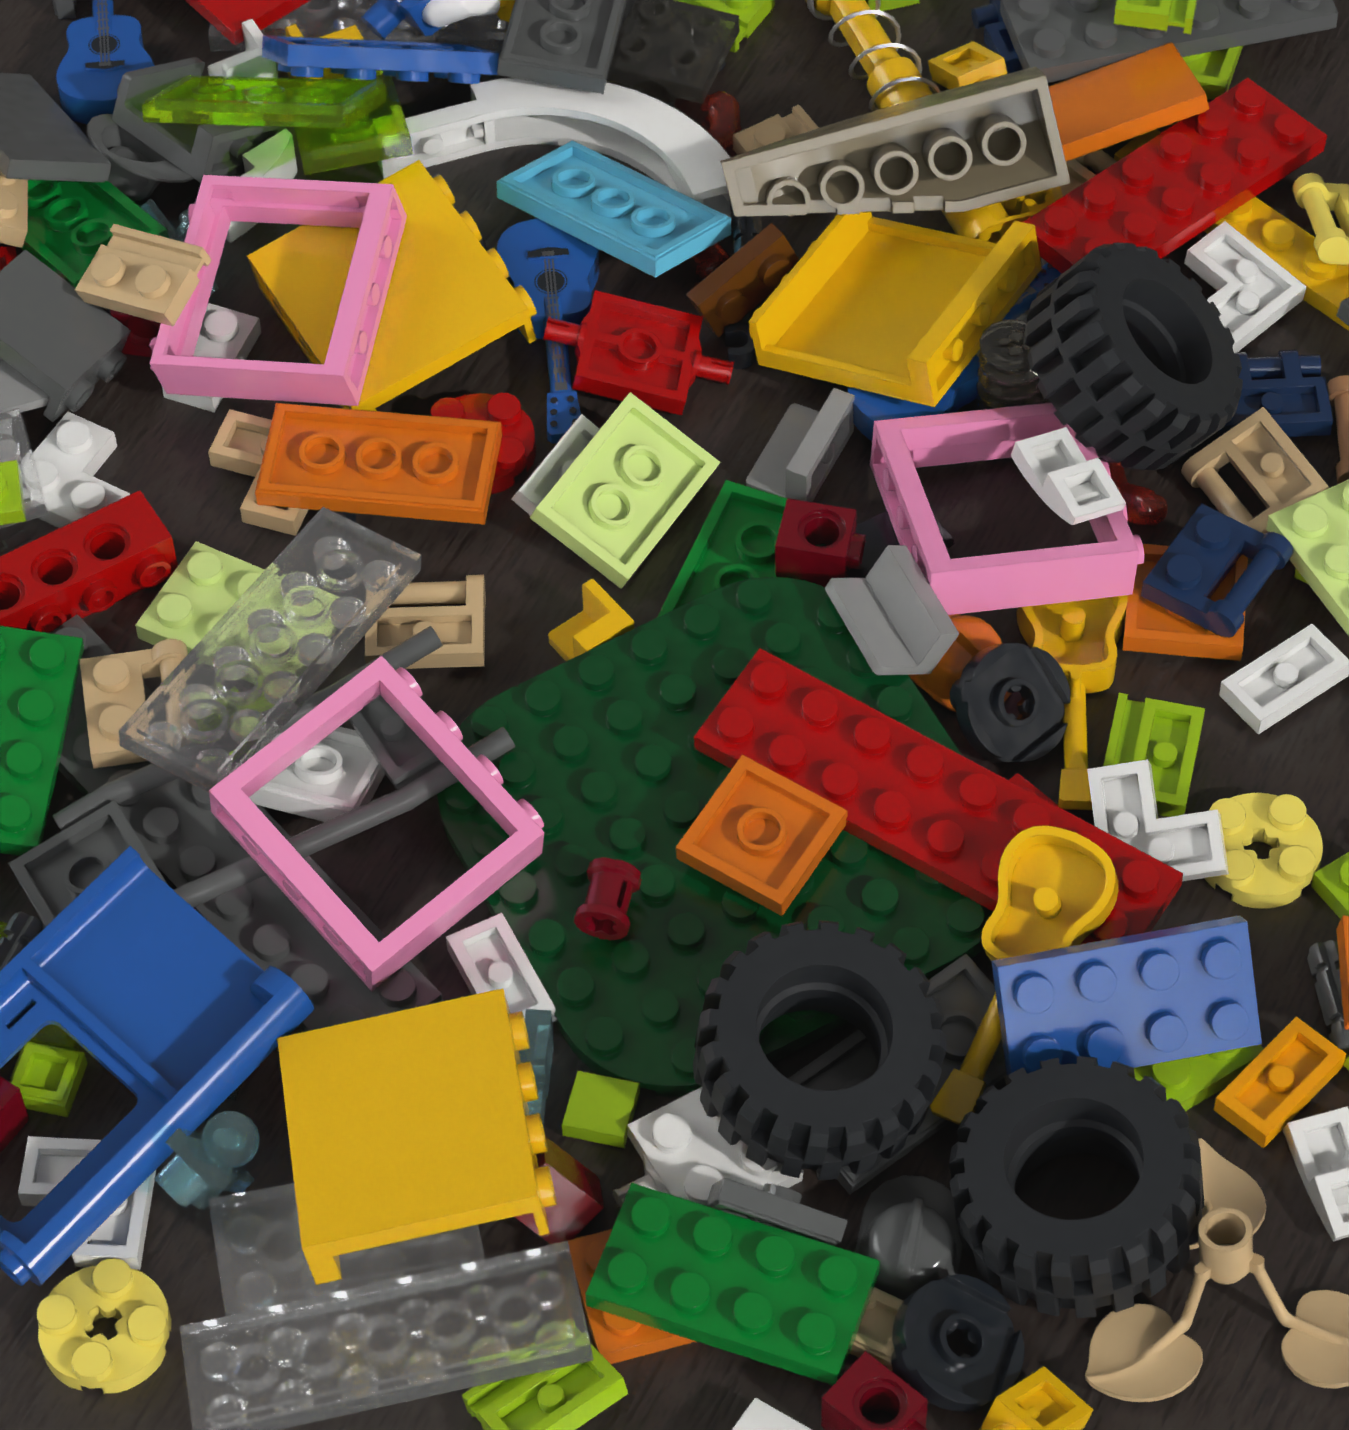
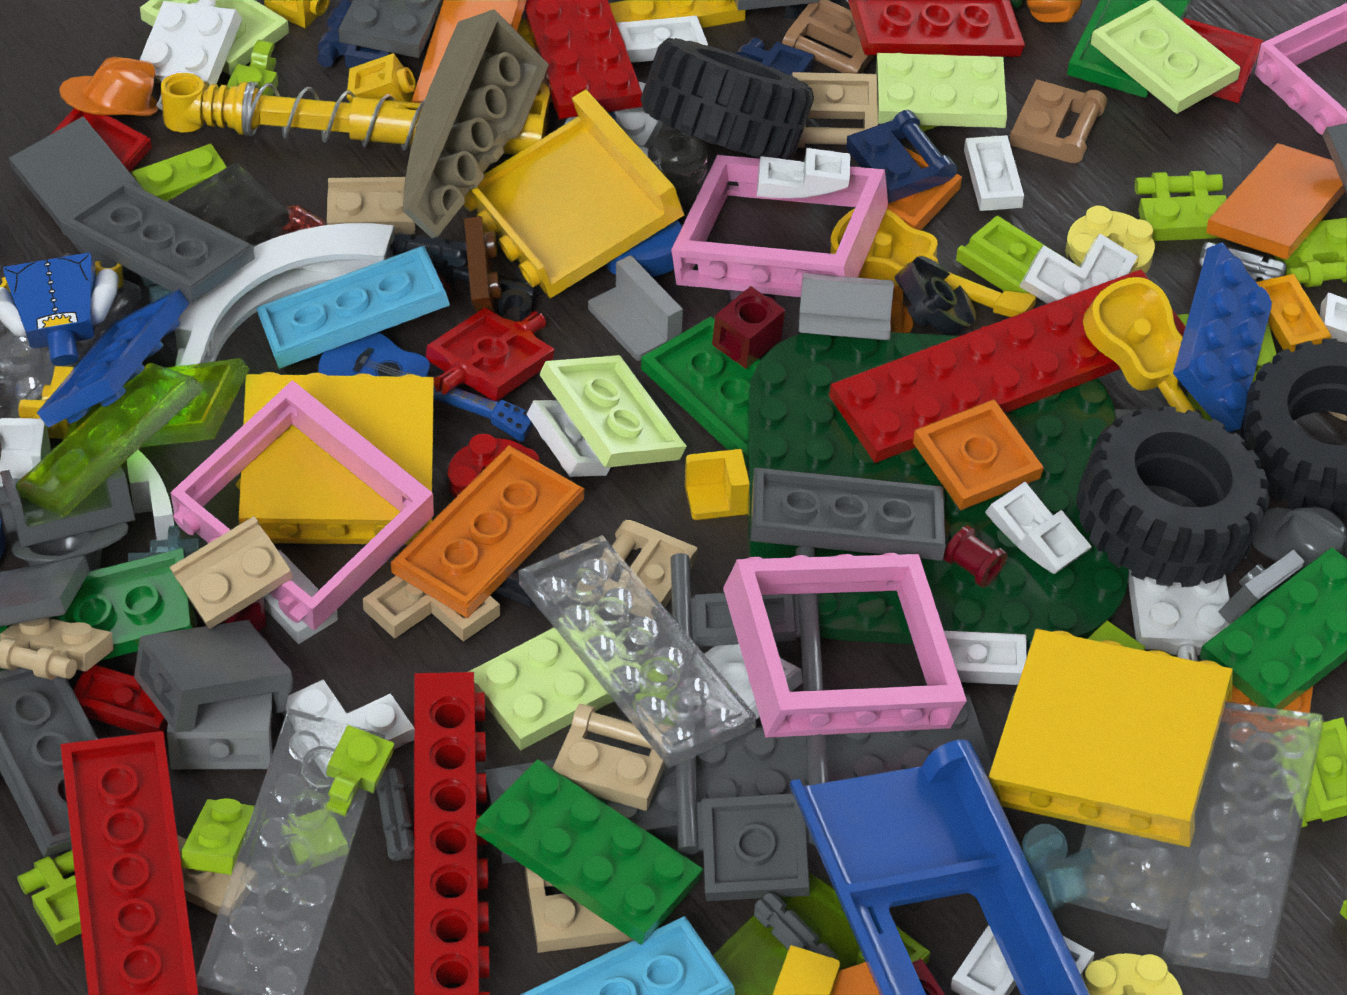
camera: 65 degrees left, 5 degrees down
(583, 751) = (847, 513): none -> dark grey tile
(701, 942) = (1034, 530): none -> white slope

